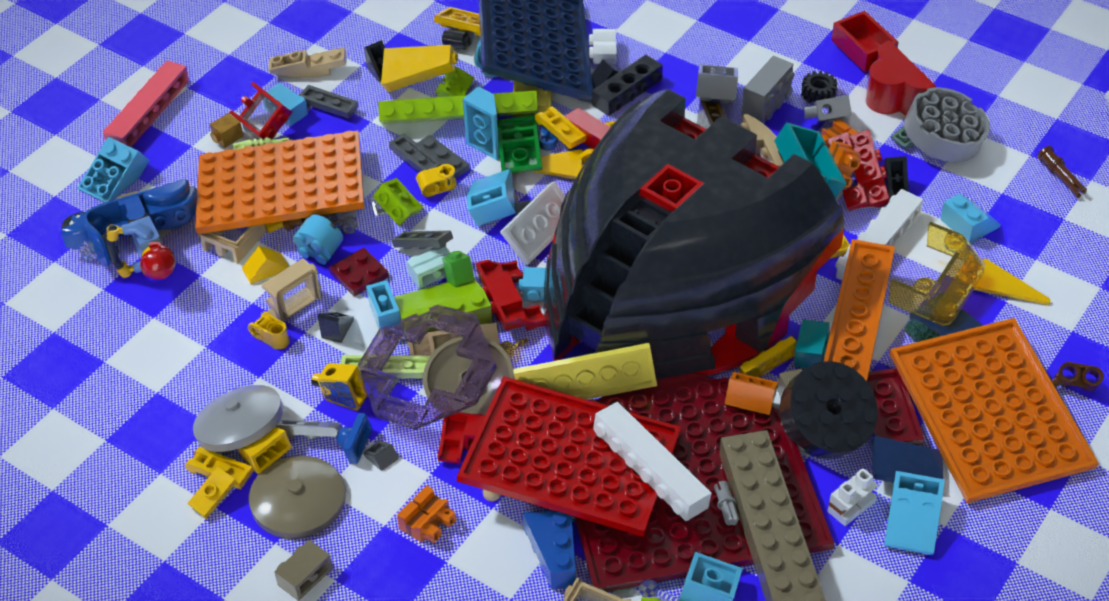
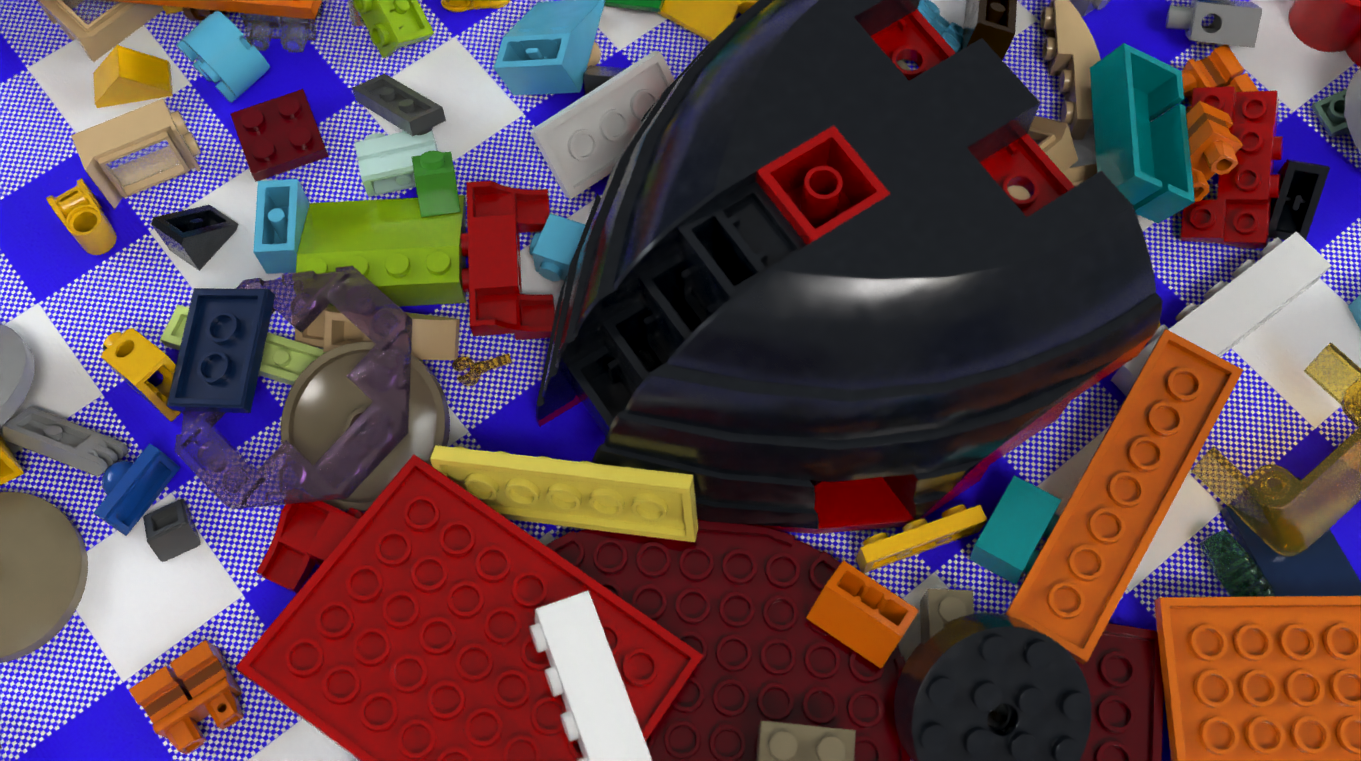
camera: 15 degrees right, 20 degrees up
(381, 360) = (221, 350): none -> dark blue tile

